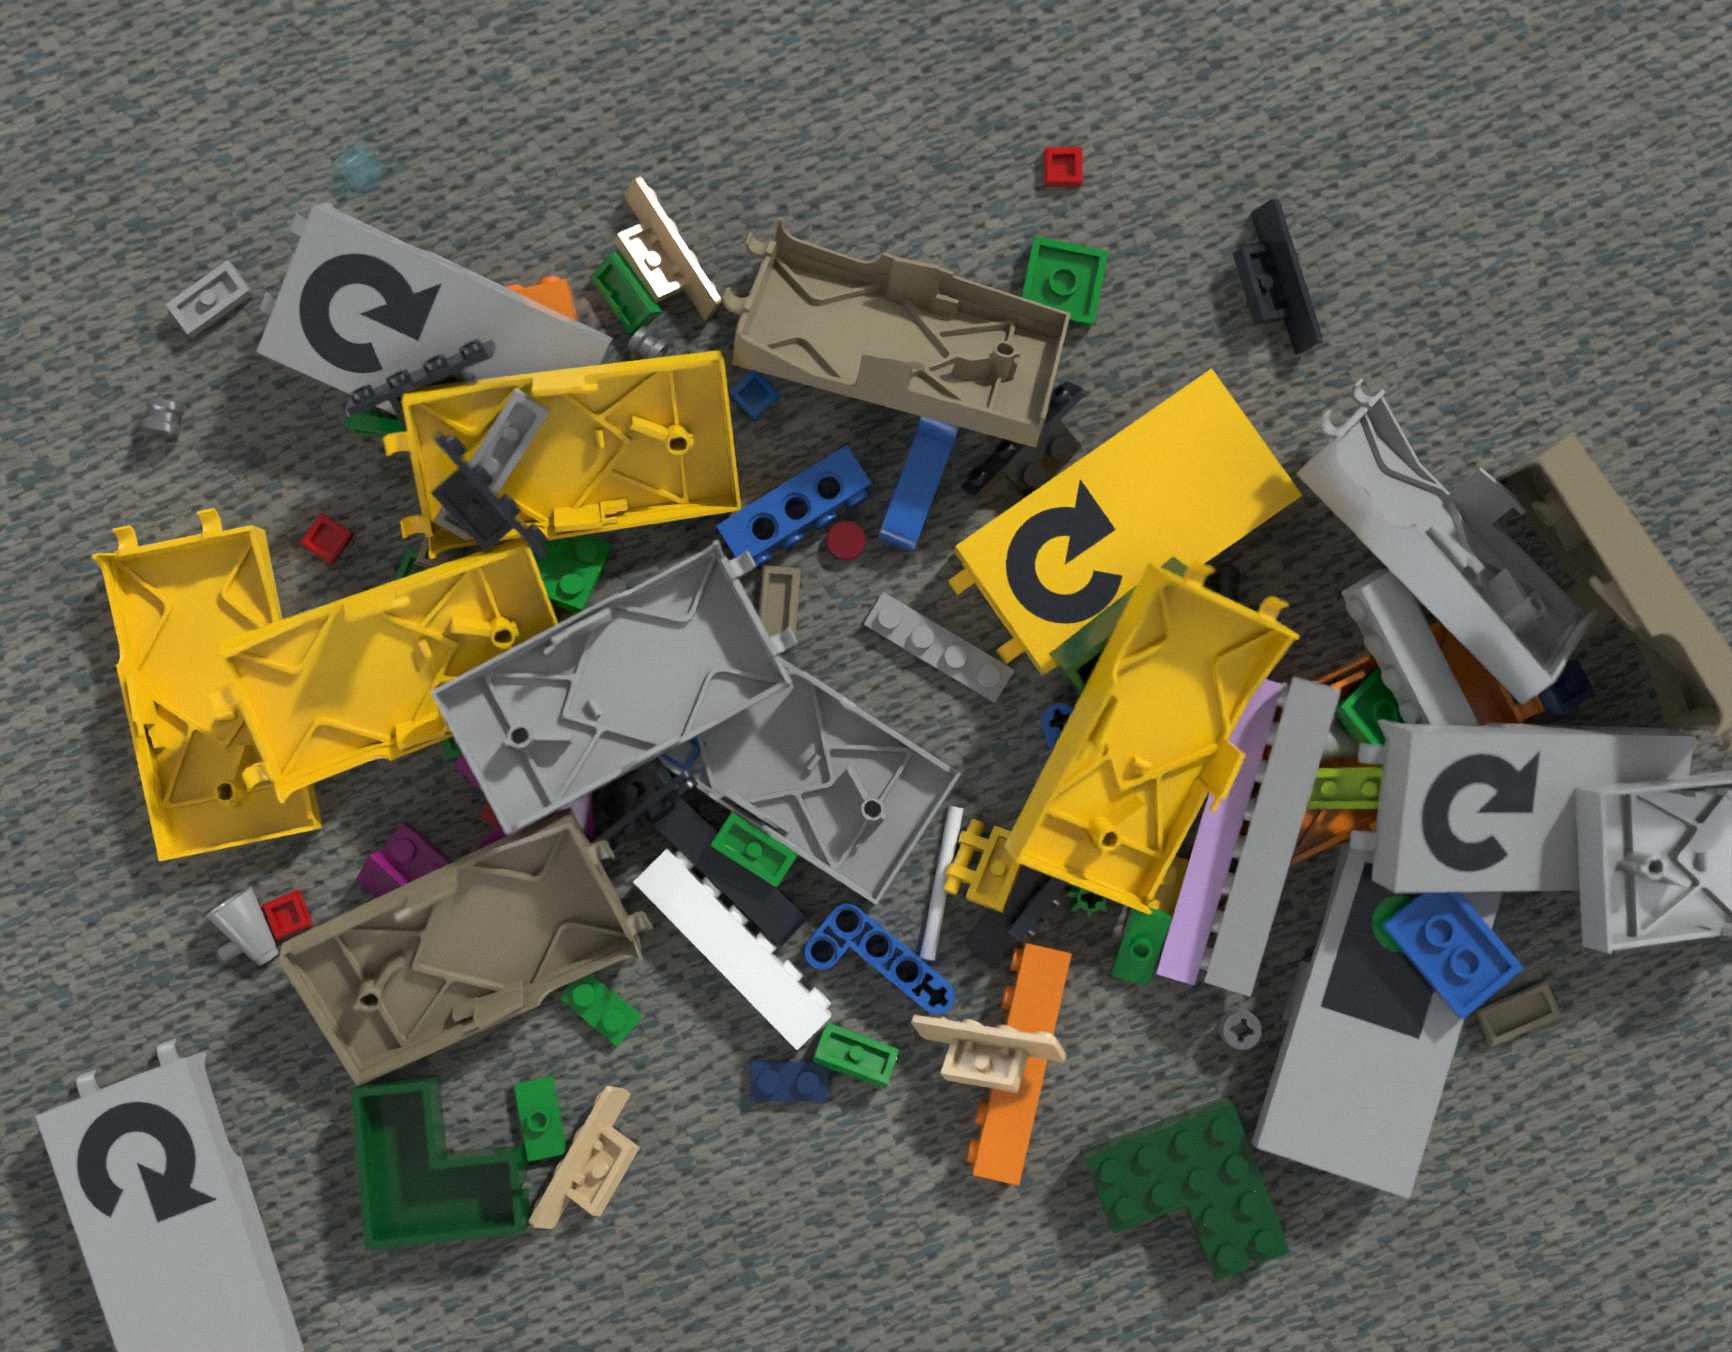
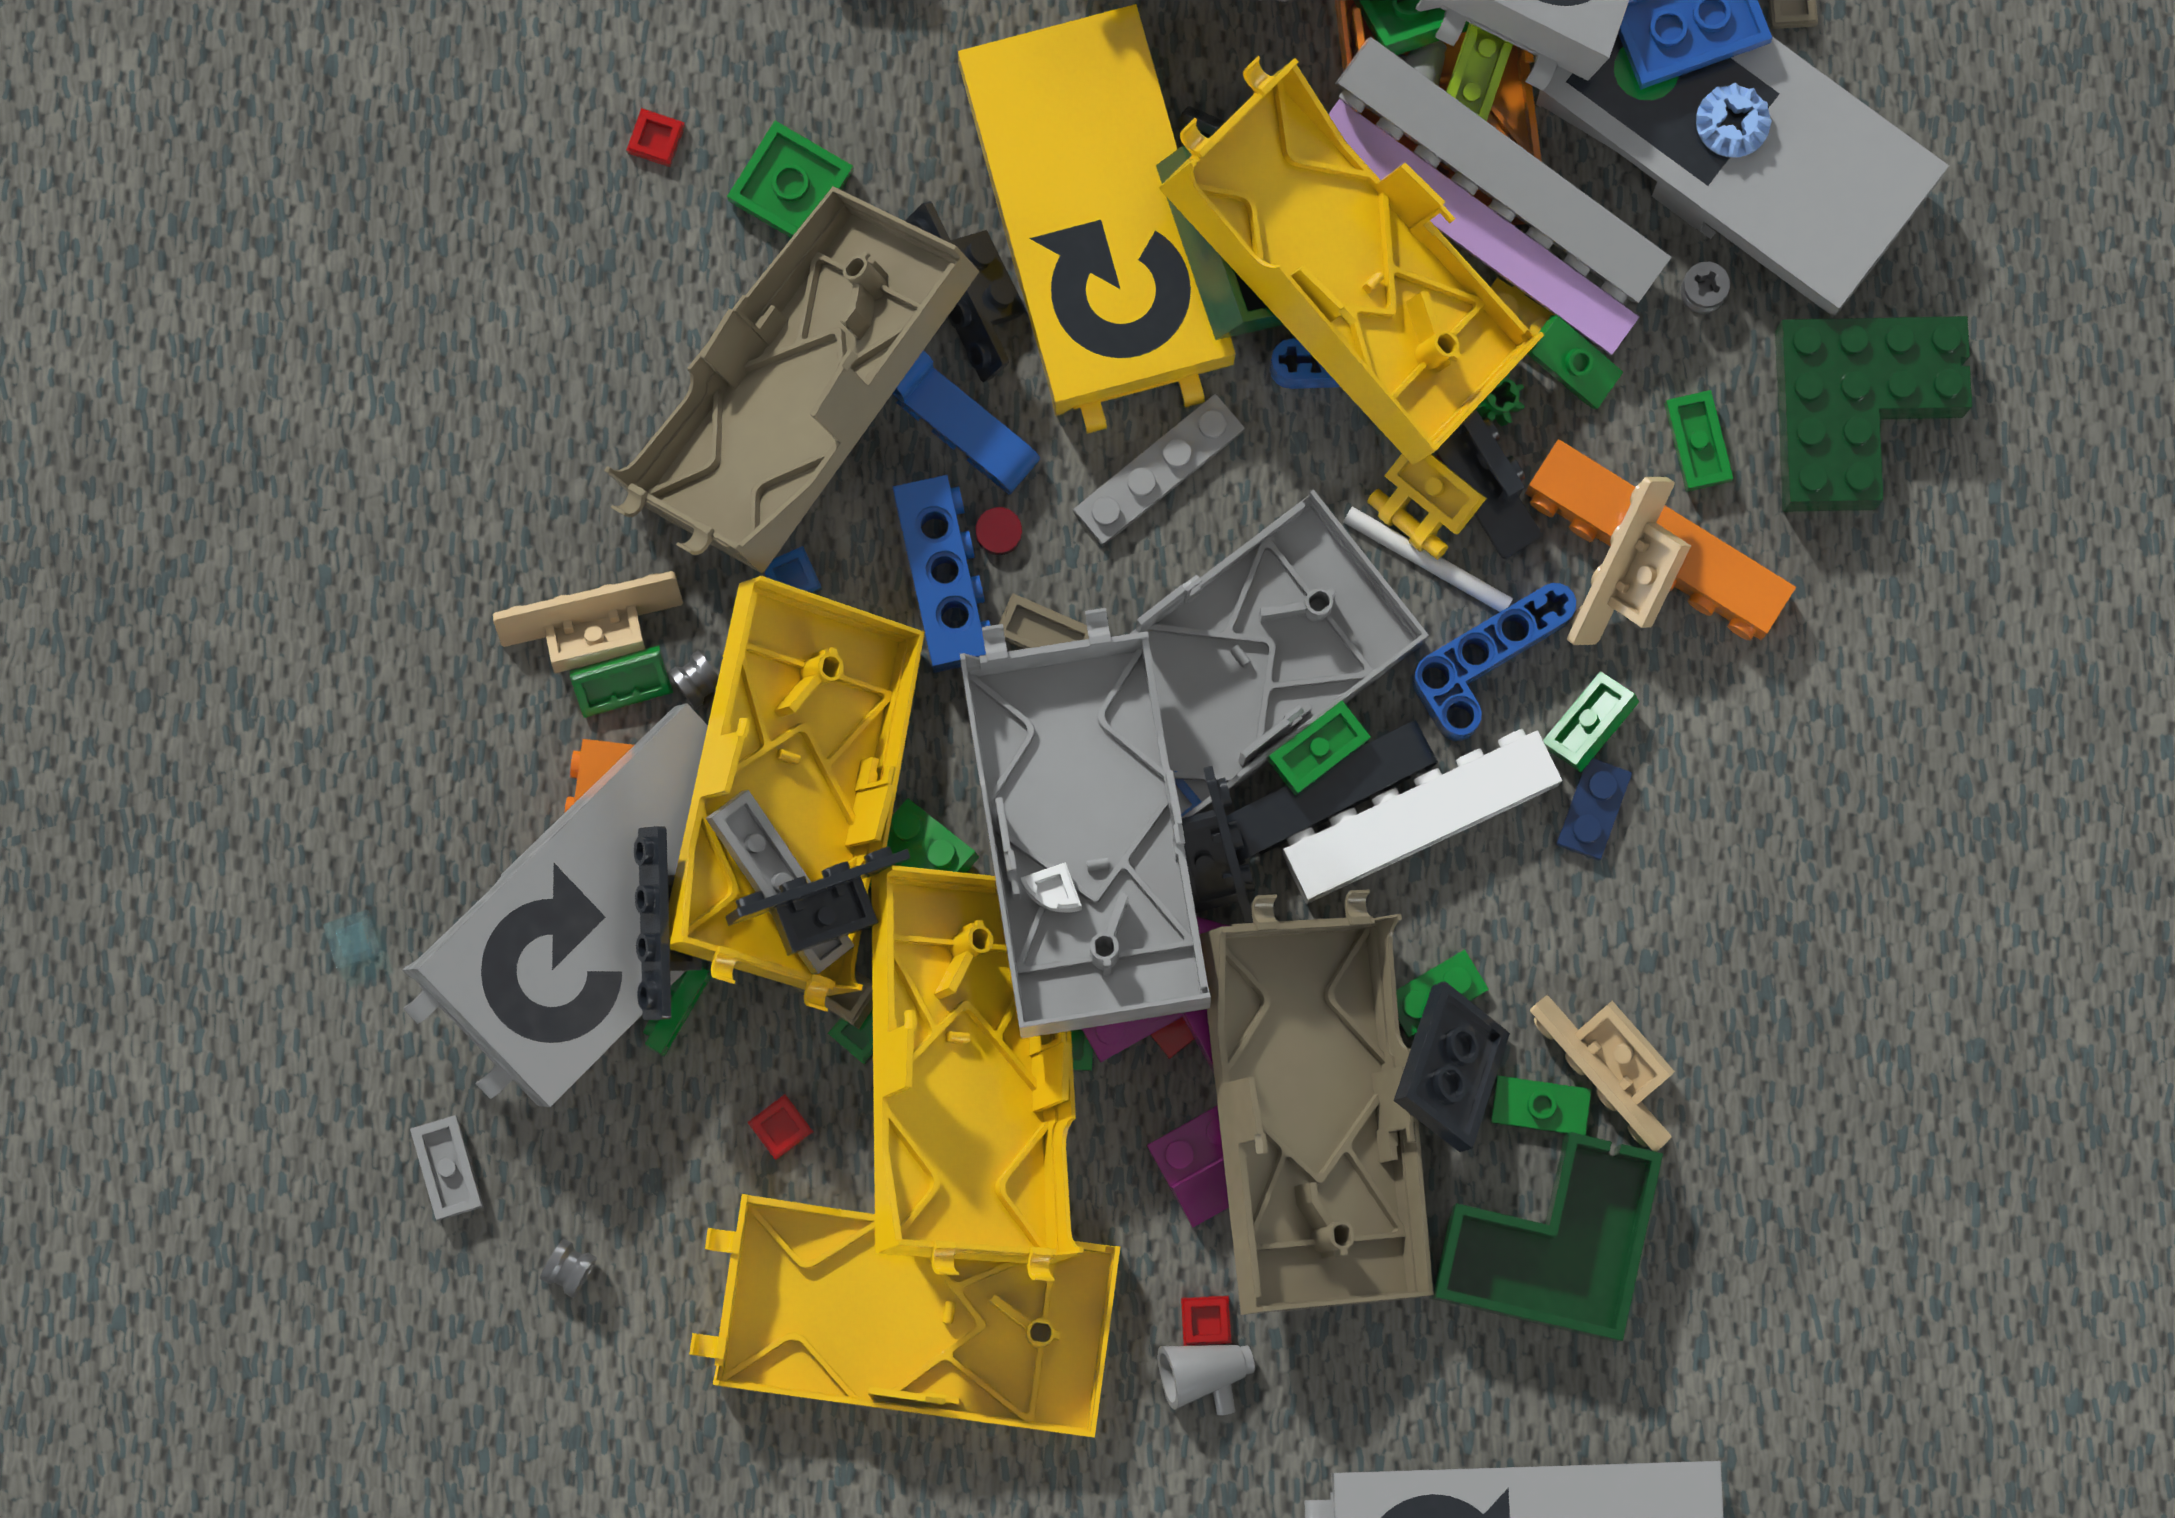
camera: 75 degrees left, 5 degrees down
(536, 1041) = (1452, 1067): none -> black plate
(558, 679) = (1053, 889): none -> white tile
(1113, 1065) = (1698, 441): none -> green plate
(1363, 1009) = (1727, 139): none -> light blue gear

